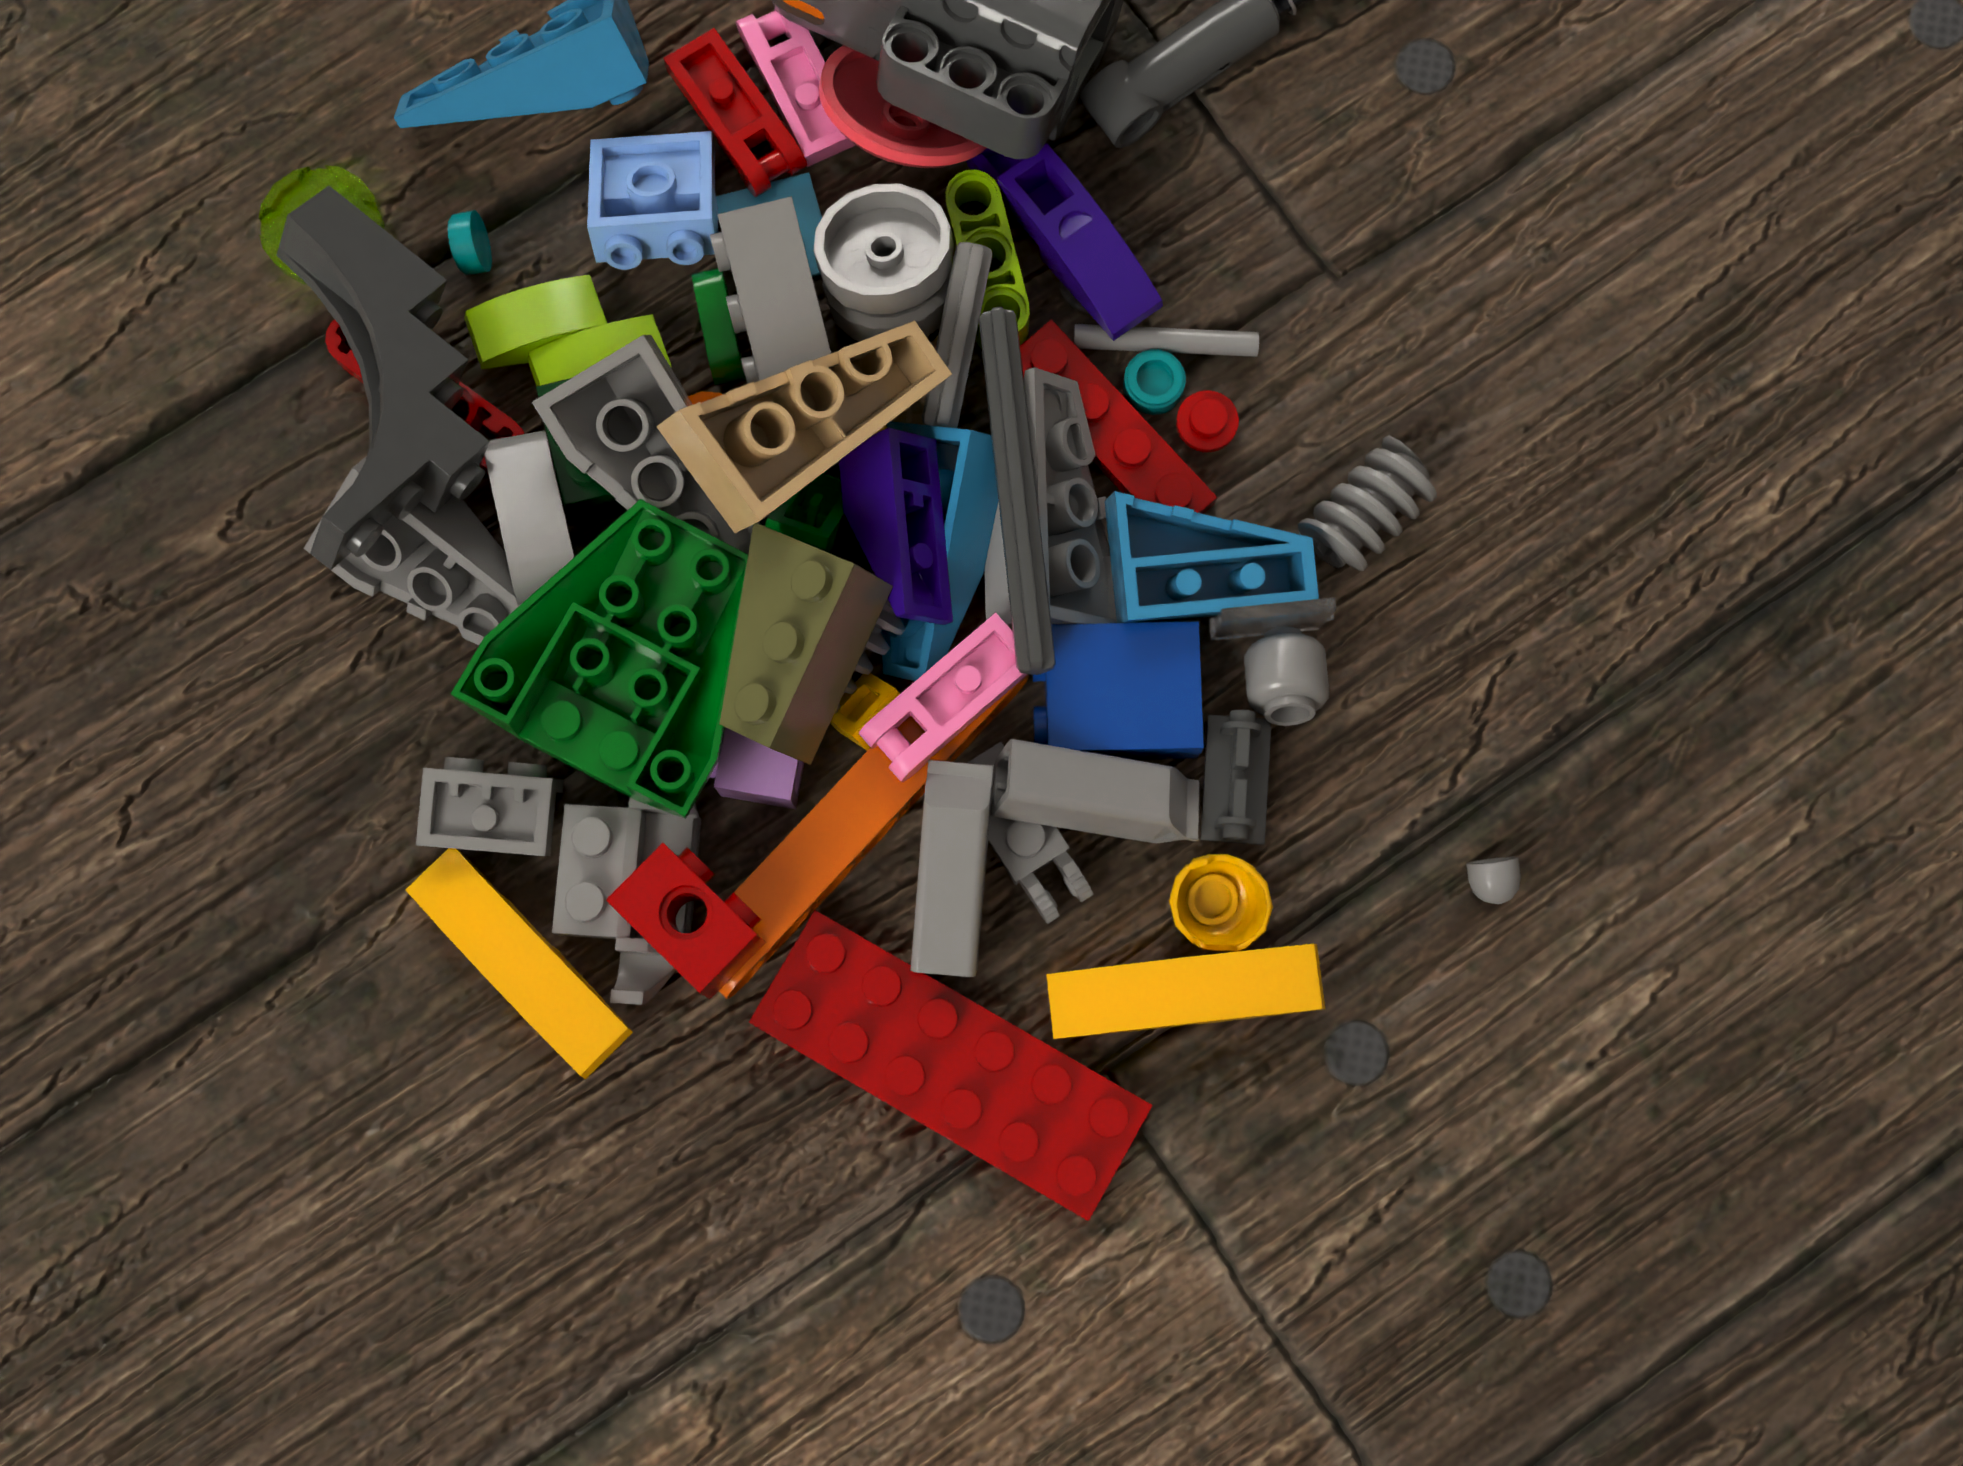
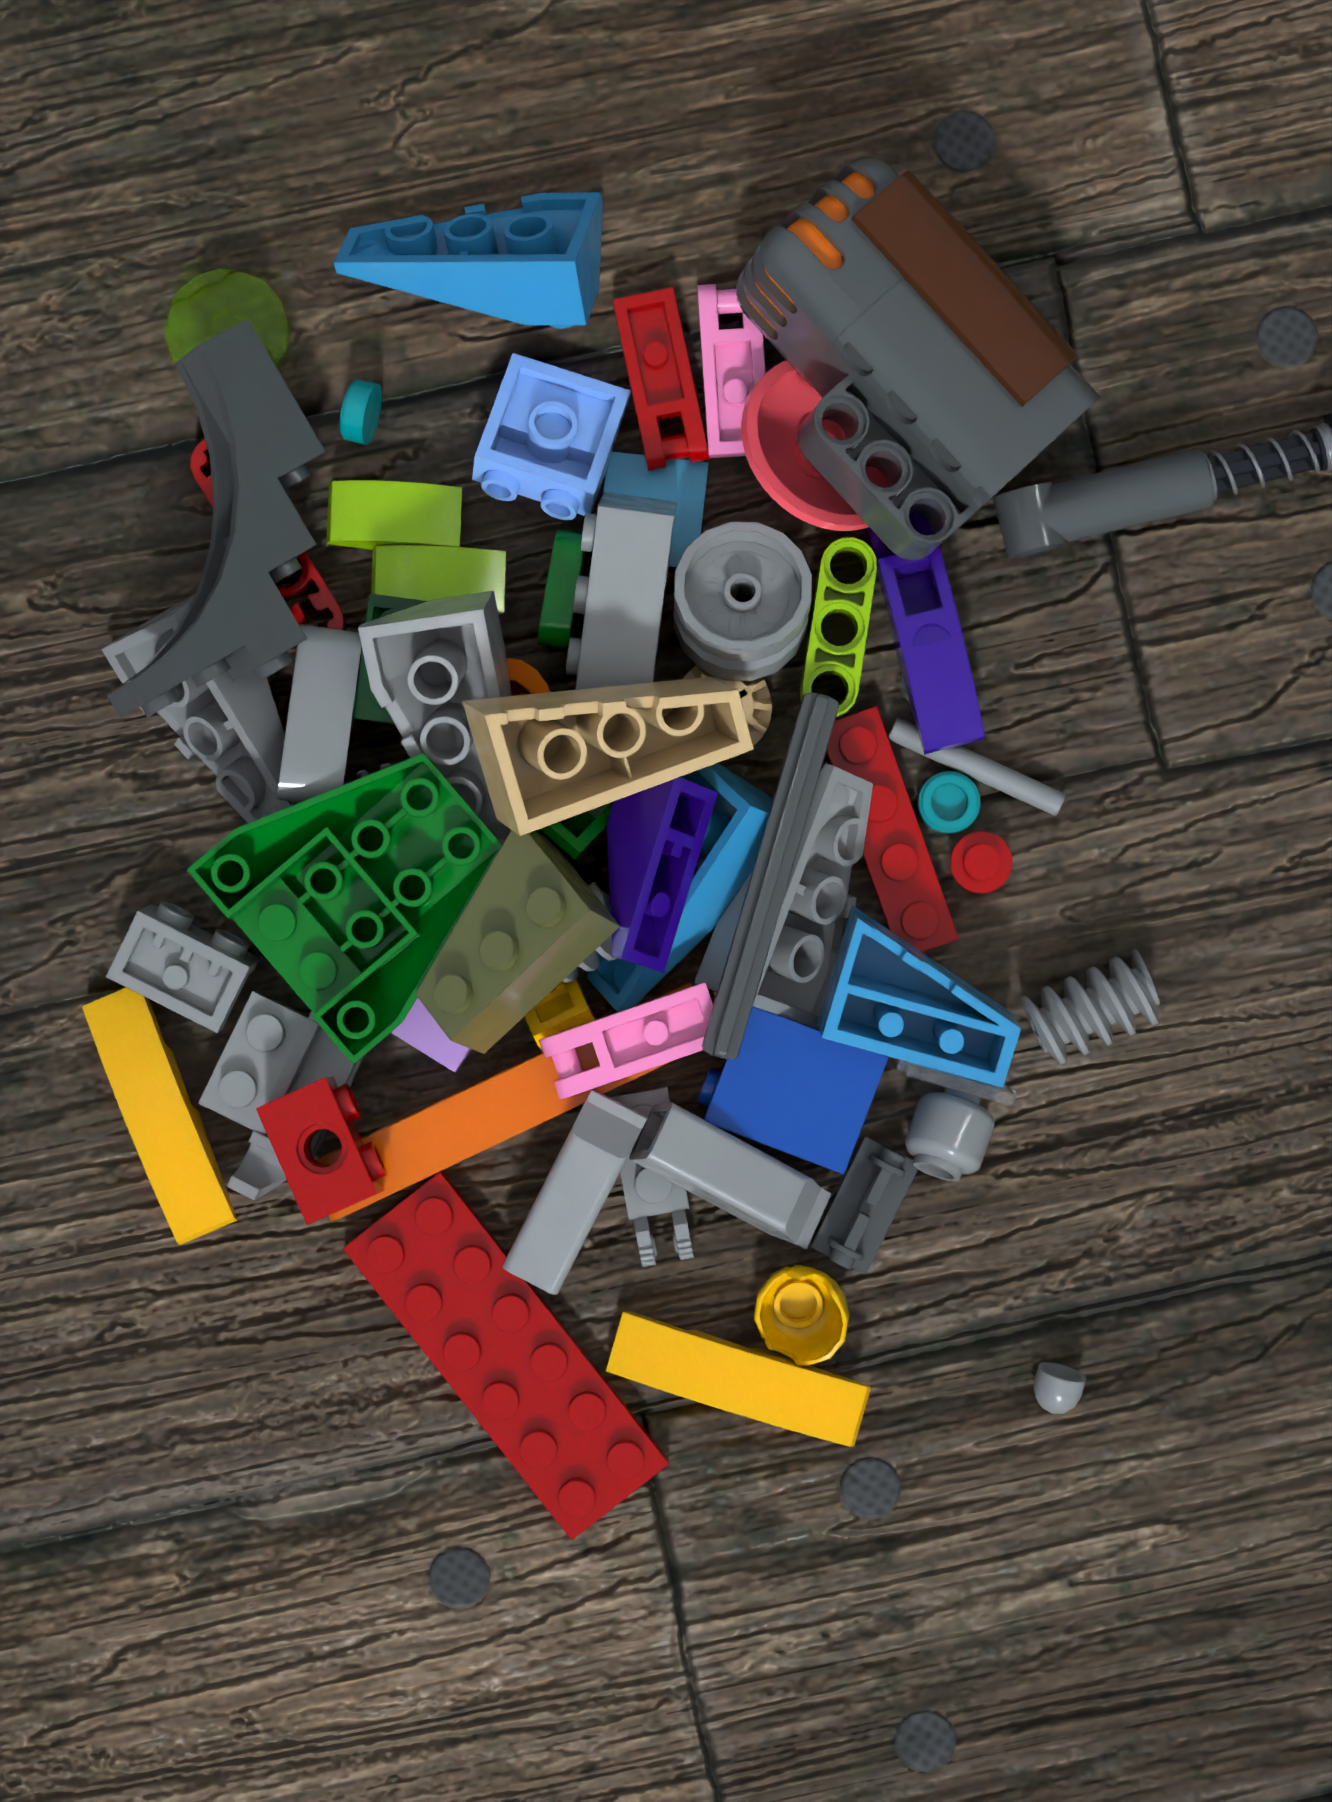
camera: 25 degrees right, 10 degrees up
(958, 332) = (783, 692): light grey axle -> none

